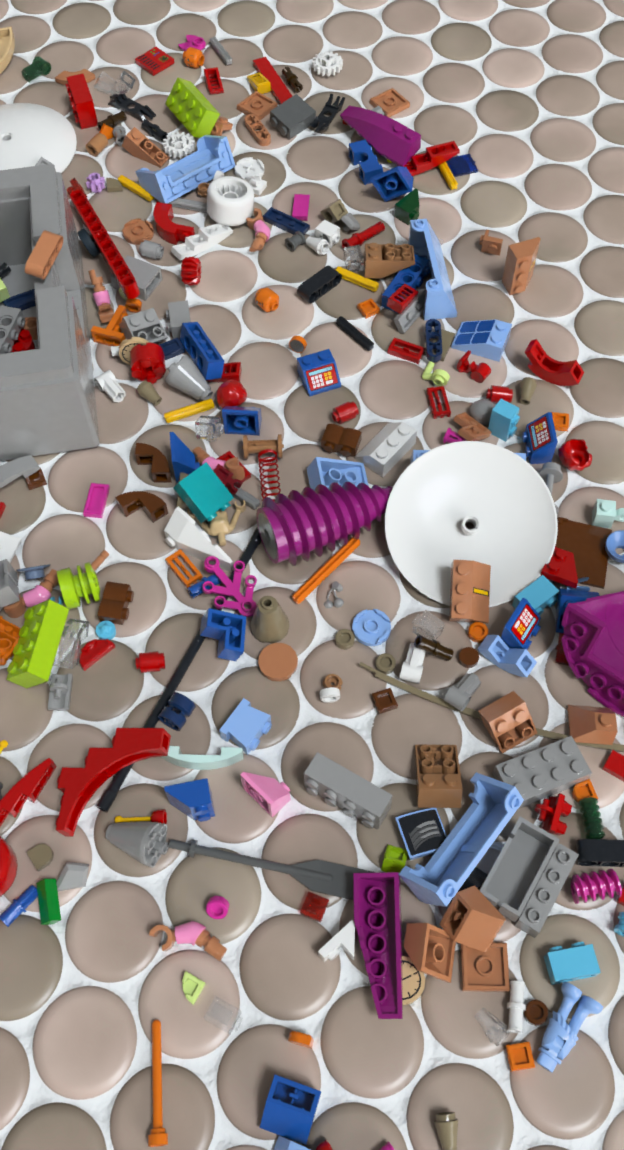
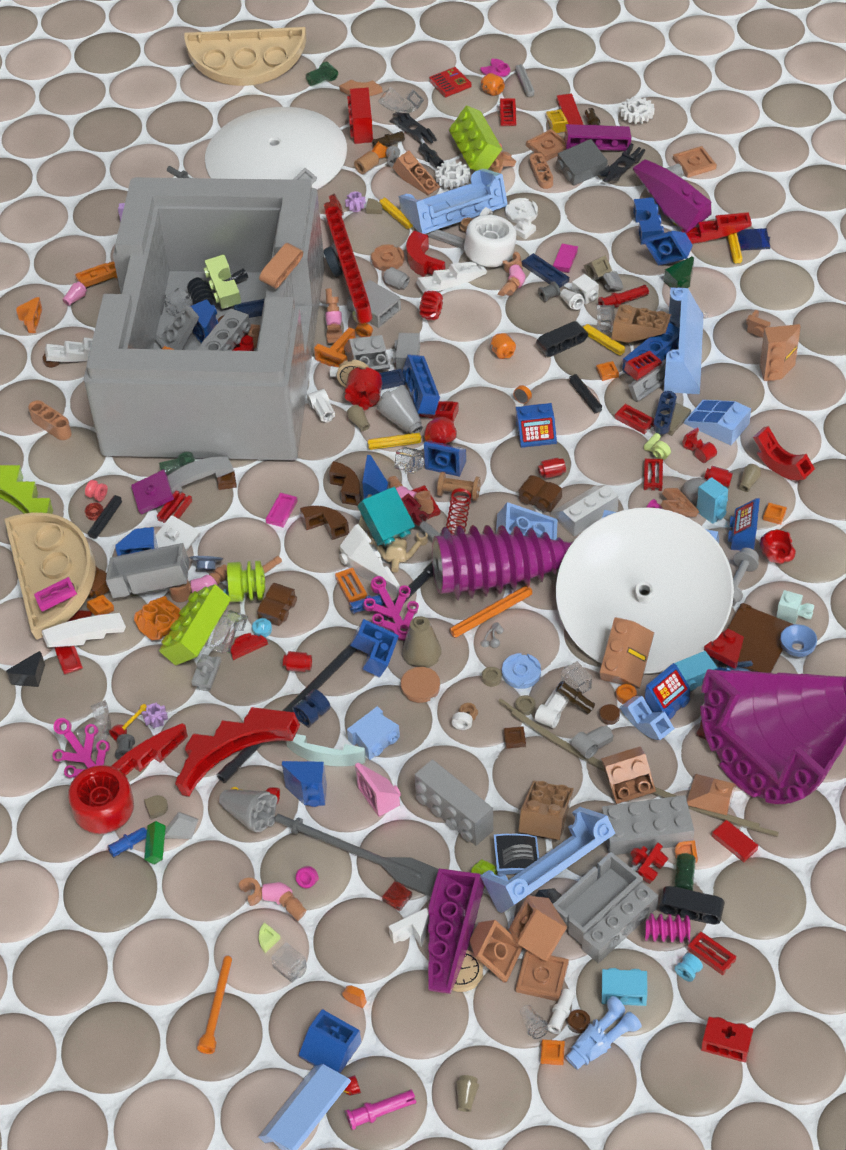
camera: 15 degrees right, 10 degrees down
(17, 751) = (155, 715): none -> lavender gear
(309, 90) = (603, 136): none -> magenta brick

